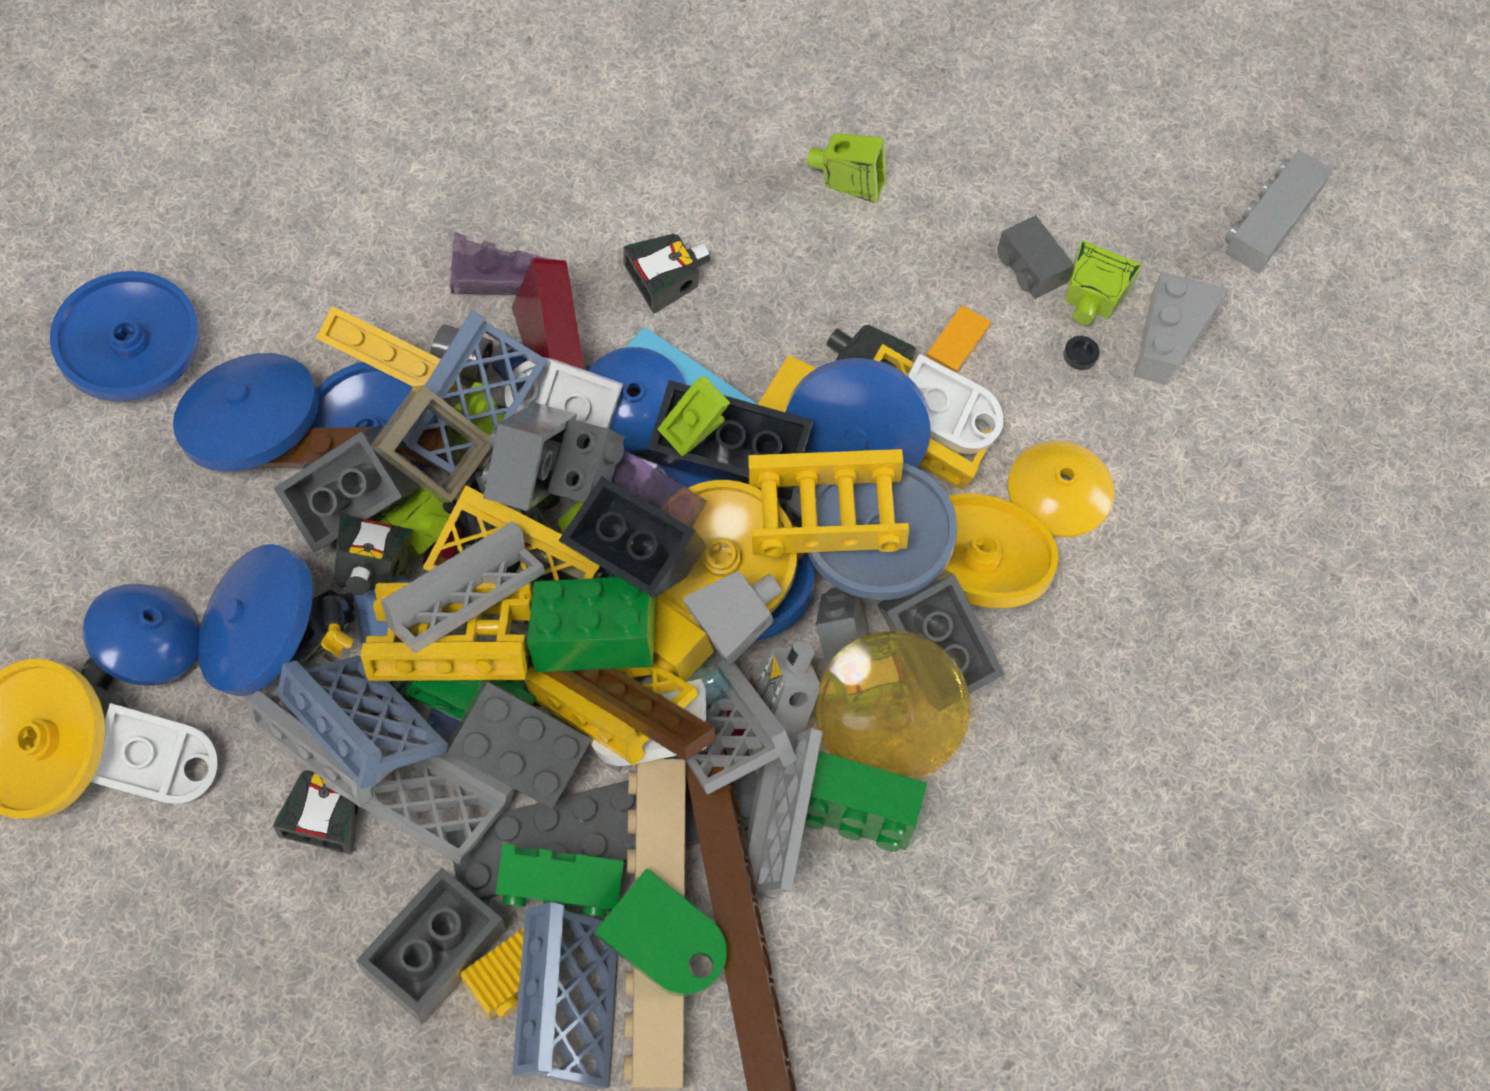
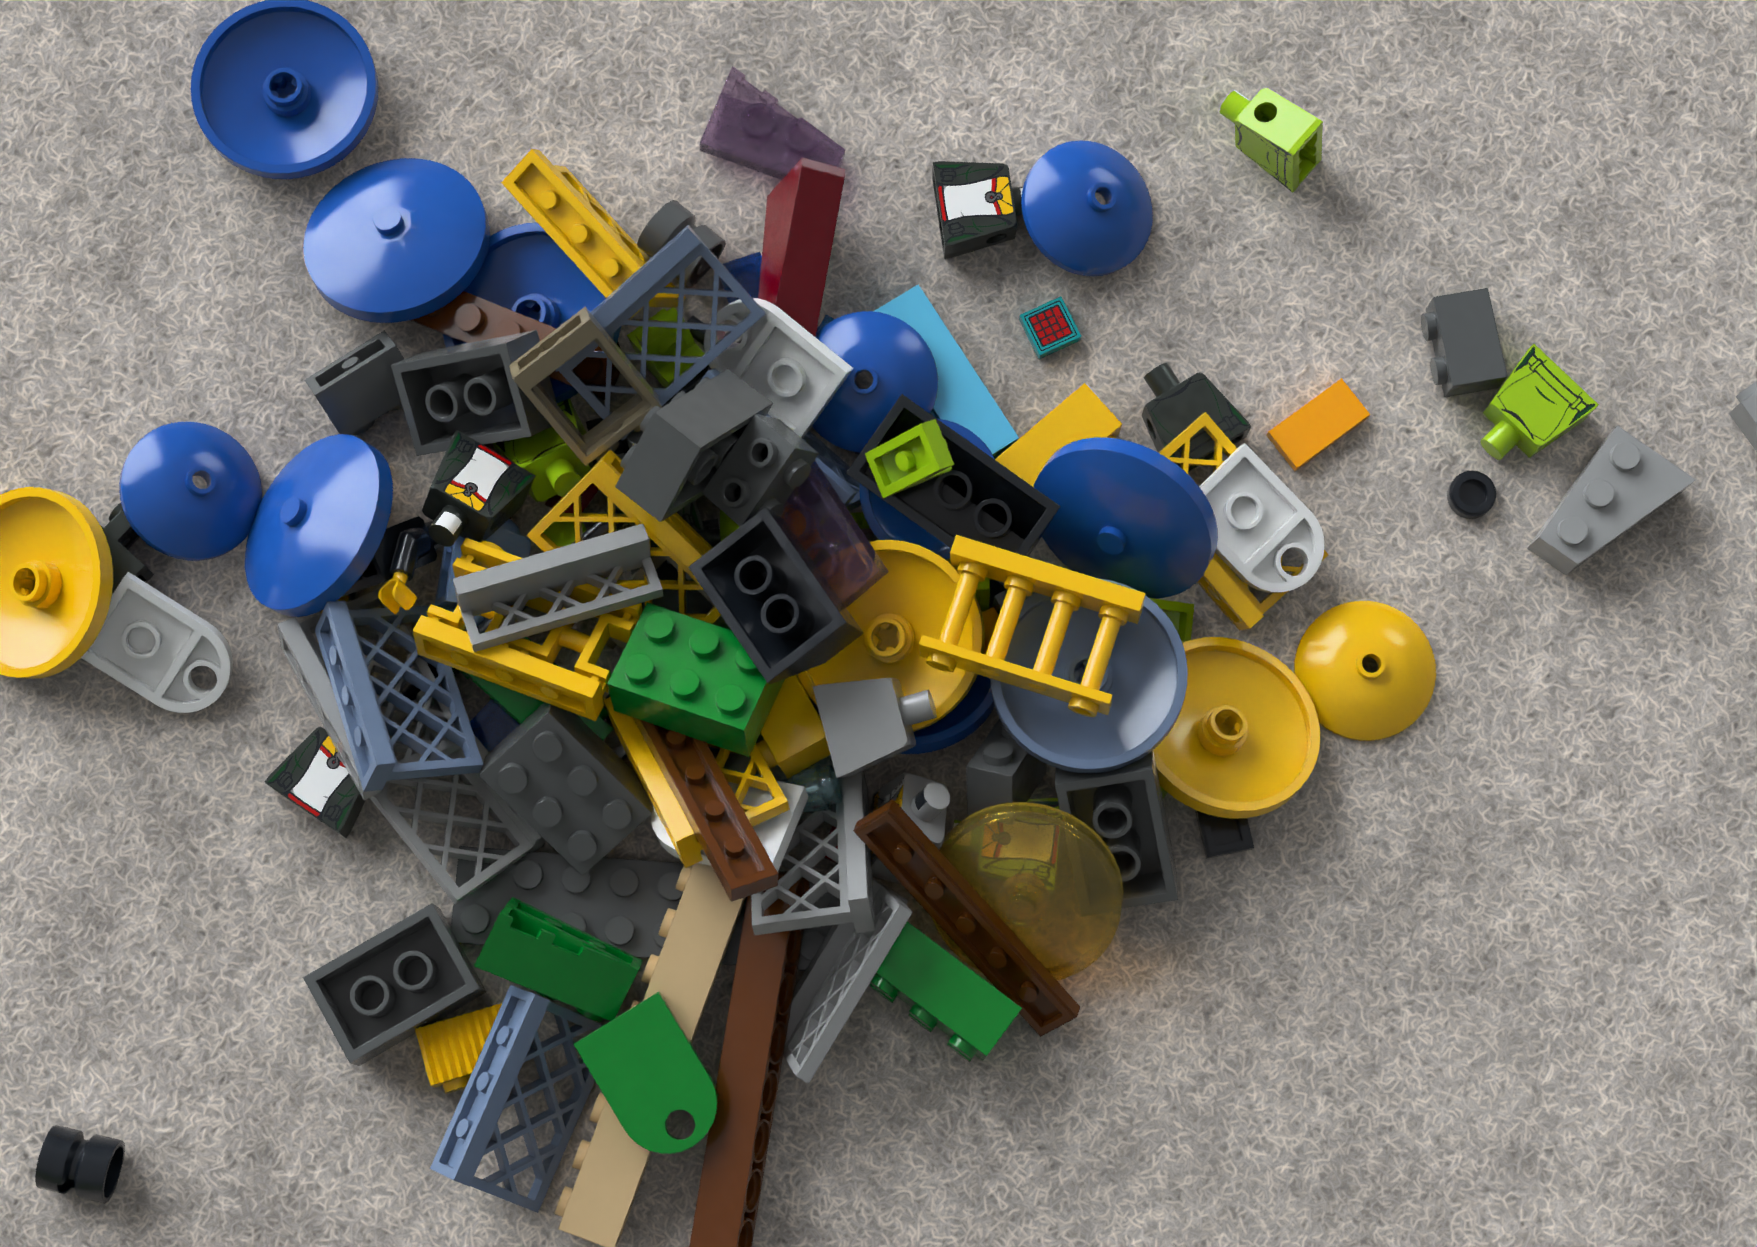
camera: 25 degrees right, 15 degrees up
(252, 517) = (359, 385): none -> dark grey brick
(741, 249) = (1069, 220): none -> blue dish
(746, 334) = (1050, 327): none -> tile
(854, 733) = (966, 917): none -> reddish brown tile
(1011, 626) = (1223, 835): none -> black tile

